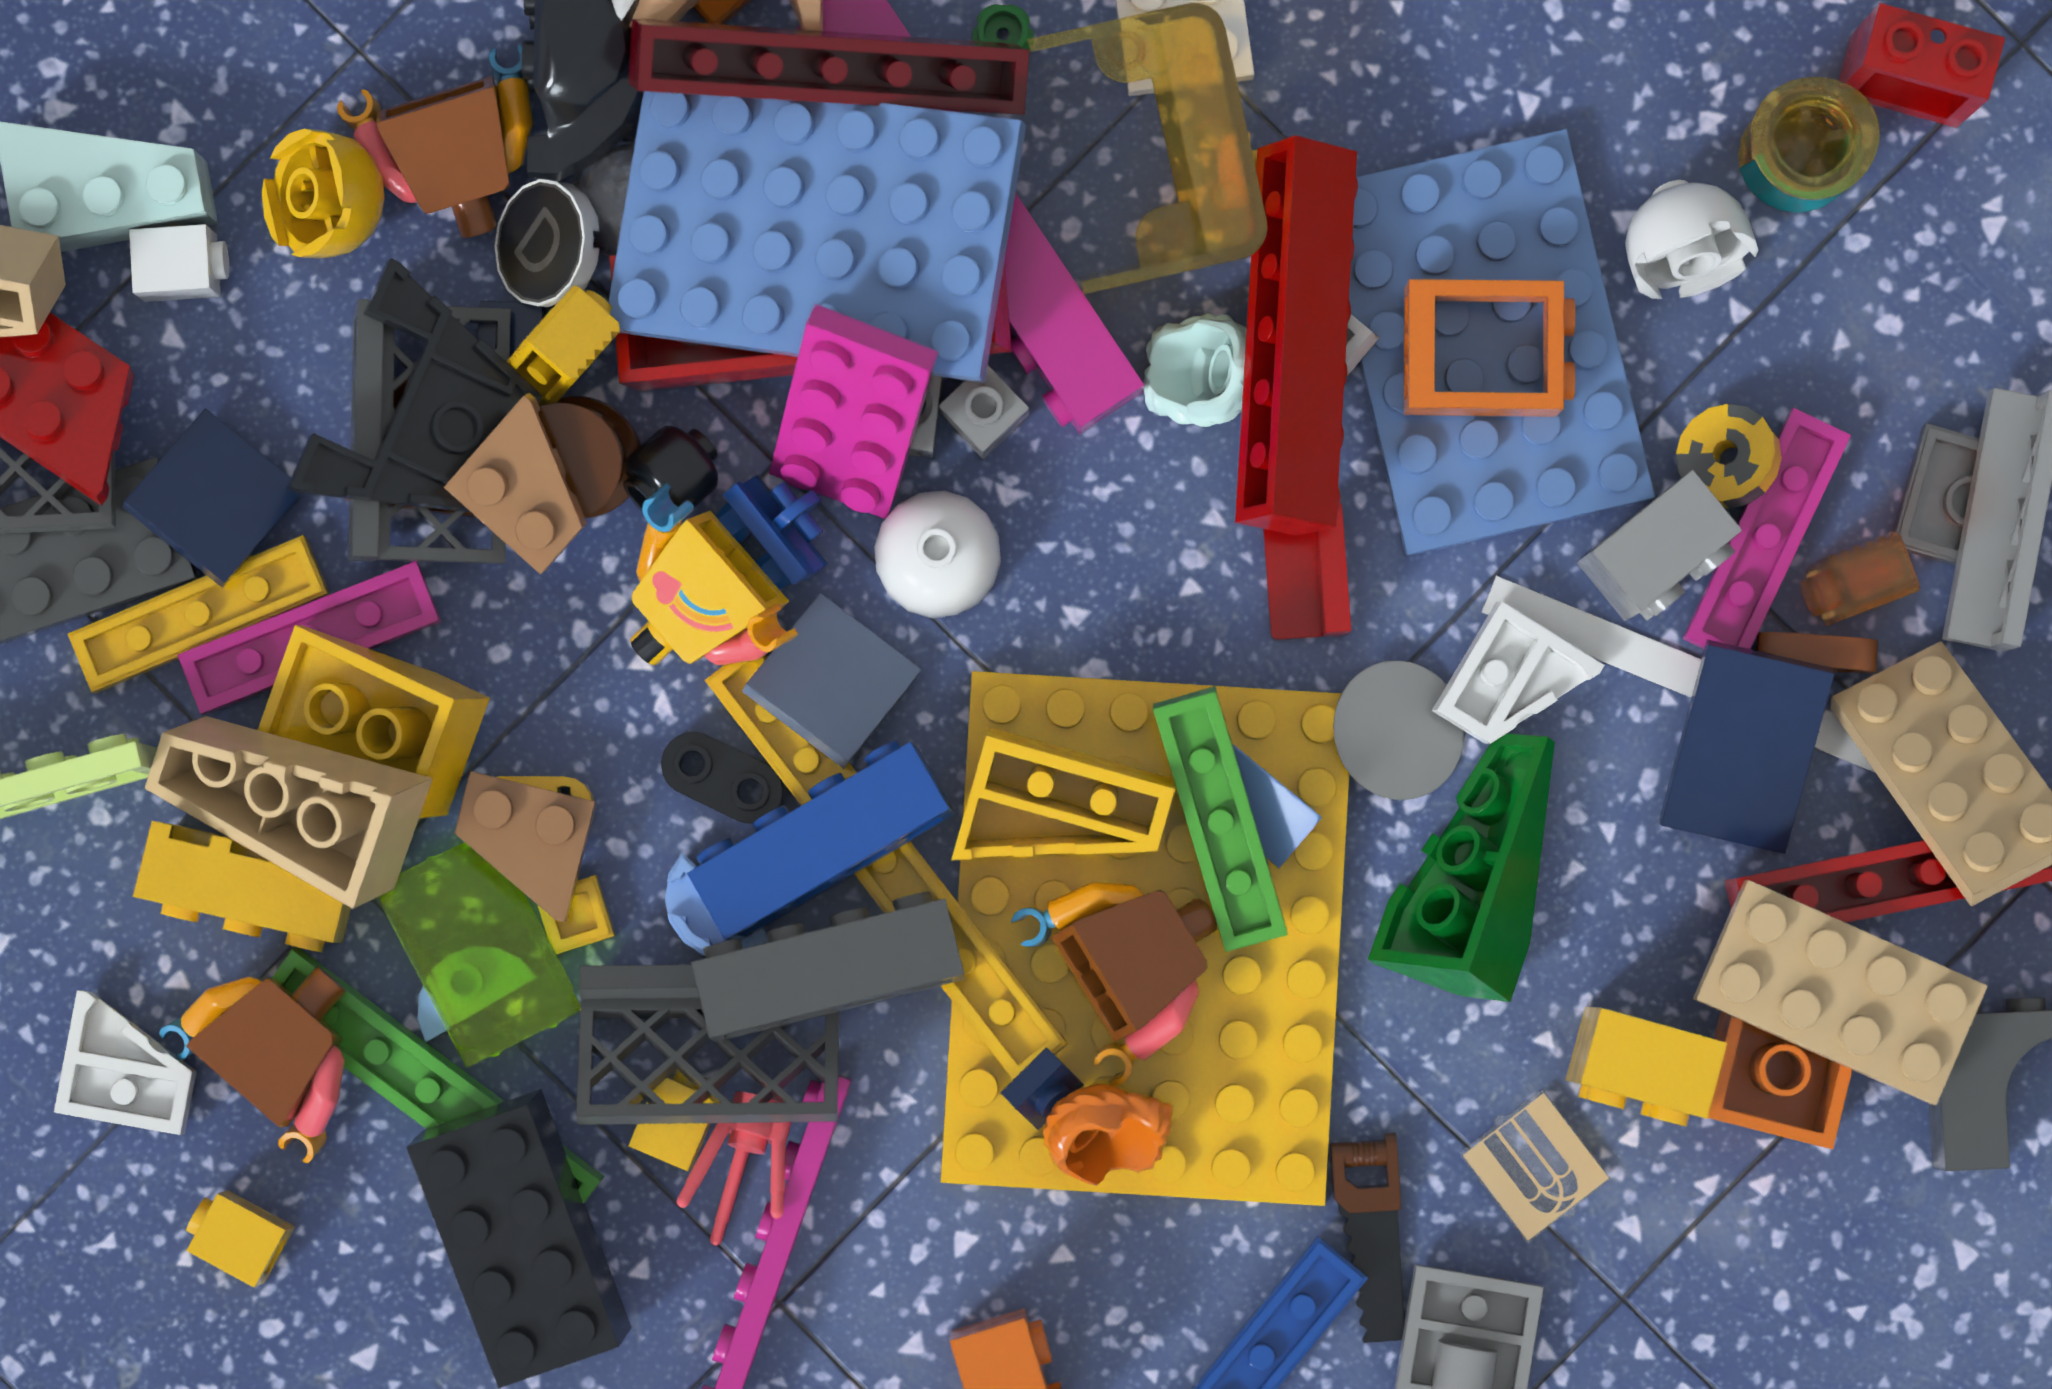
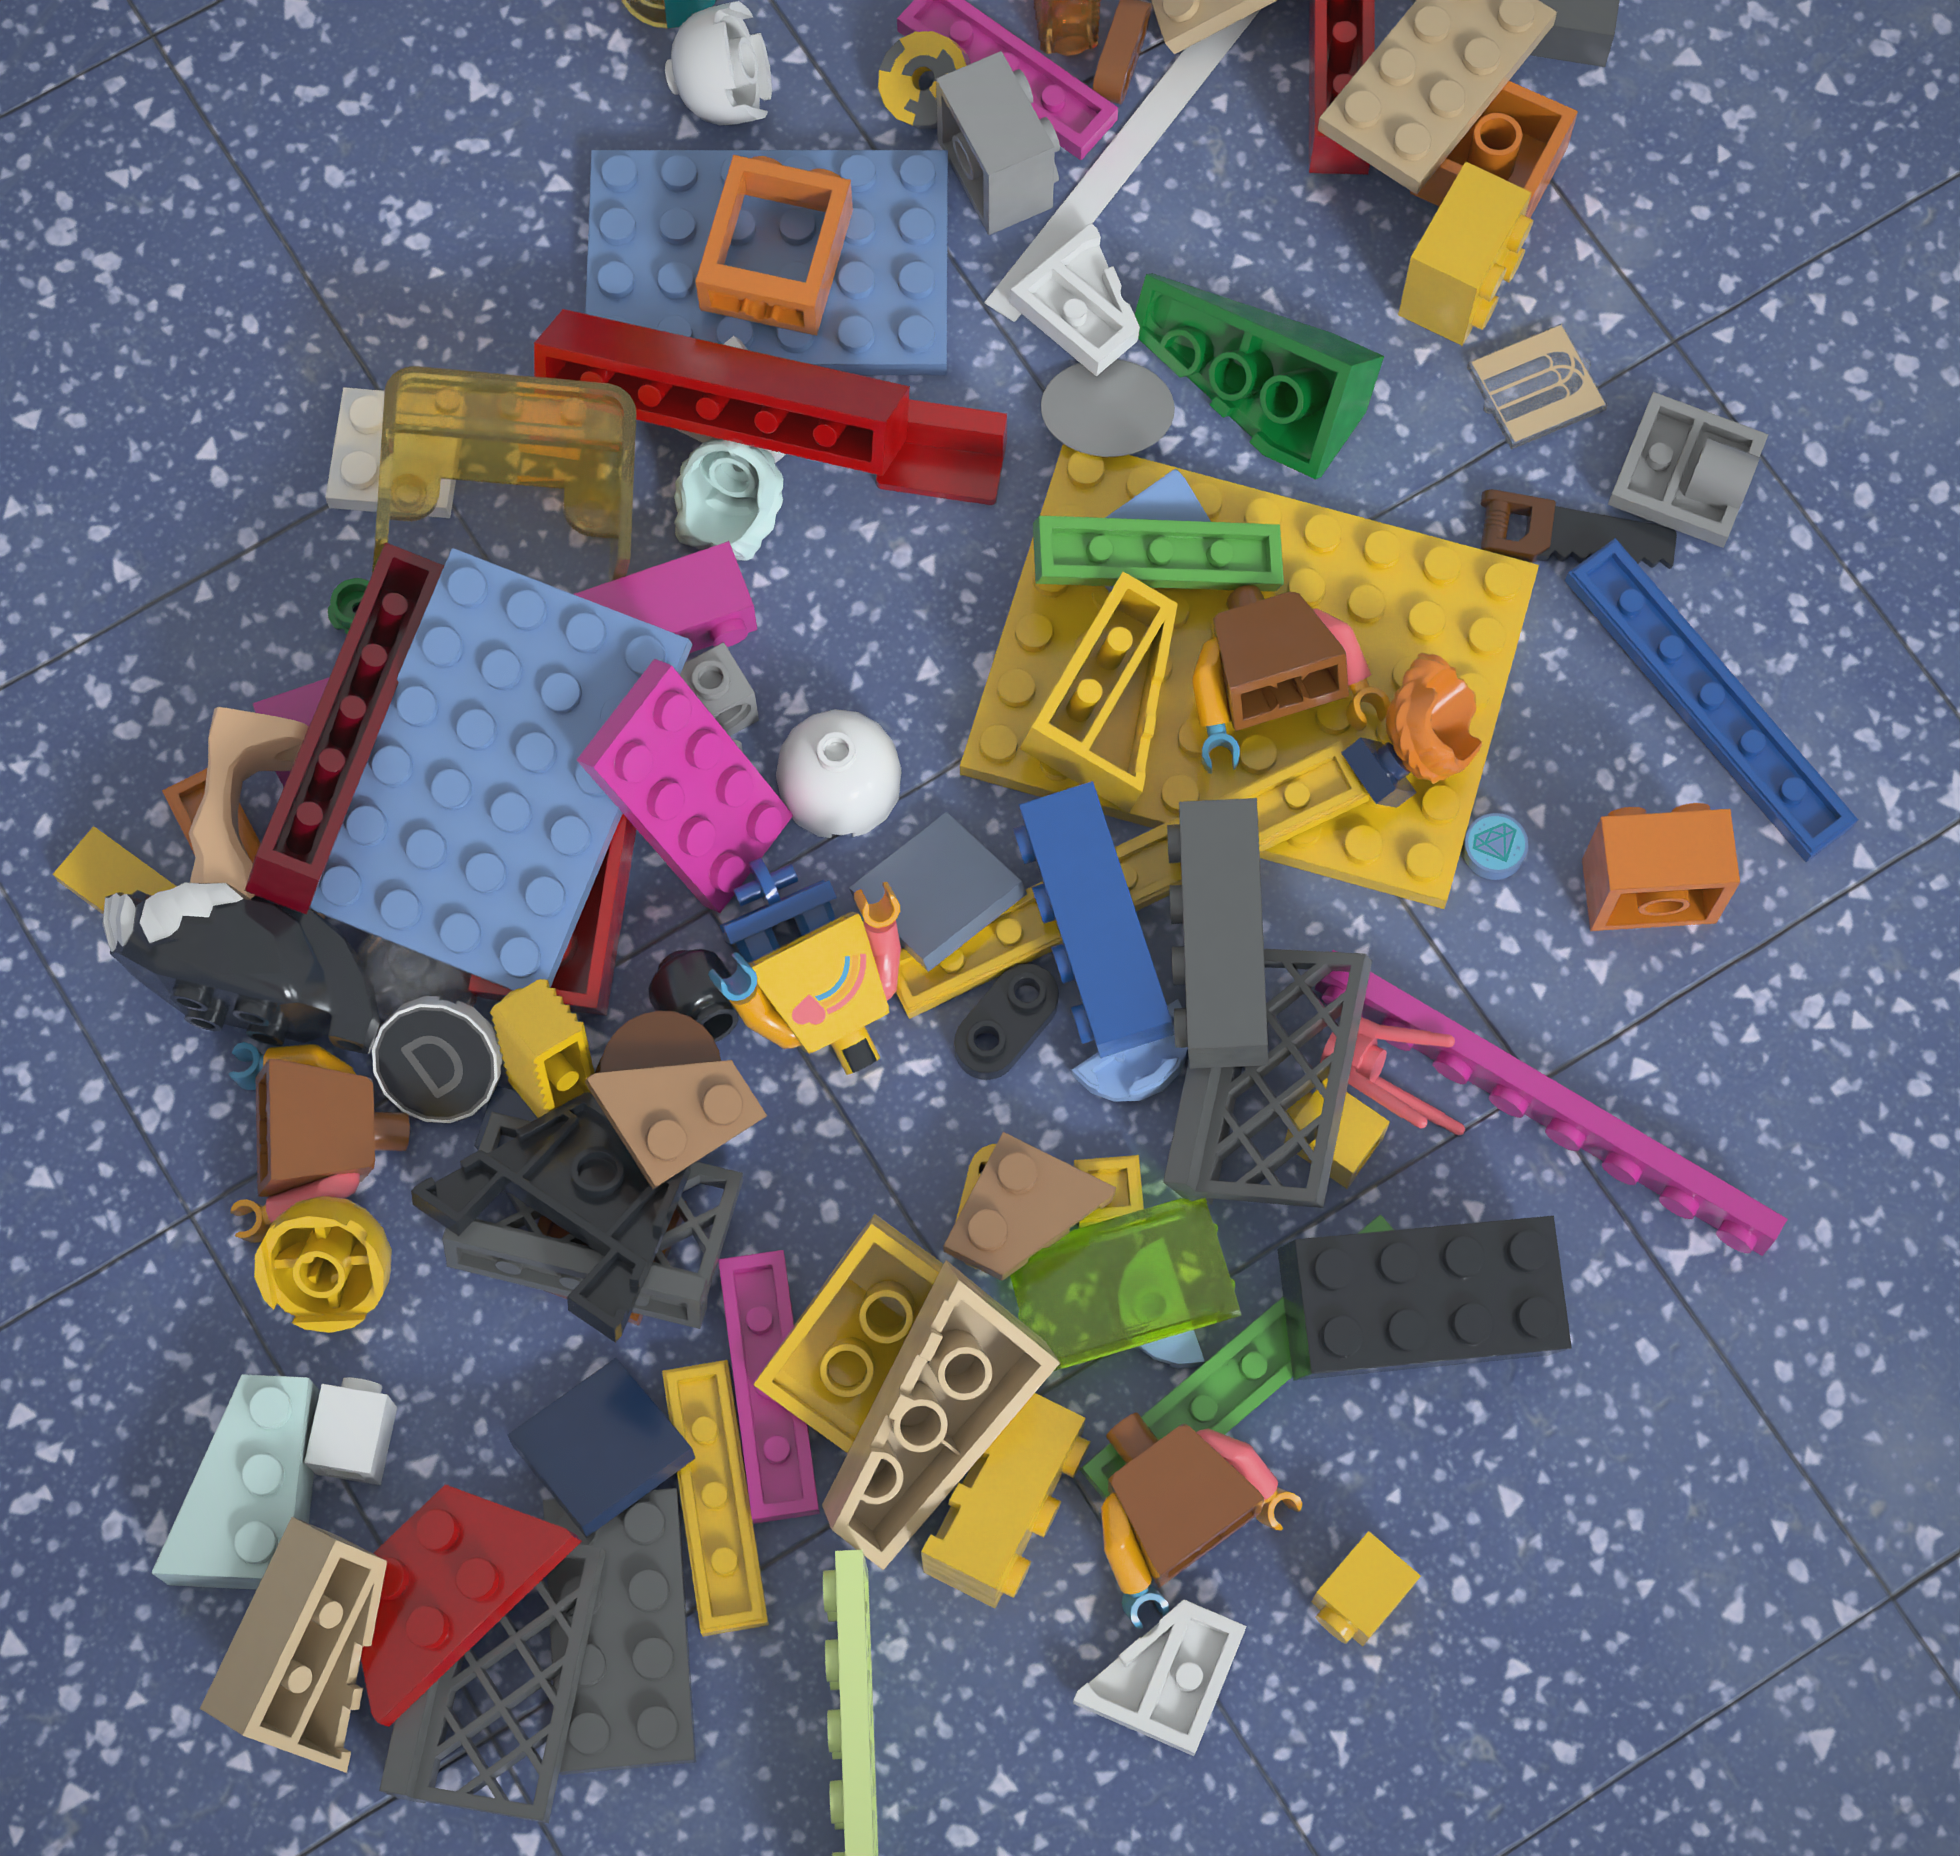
camera: 75 degrees left, 15 degrees down
(1013, 1219) = (1495, 846): none -> tile
(1746, 746) = (1193, 119): dark blue tile -> none

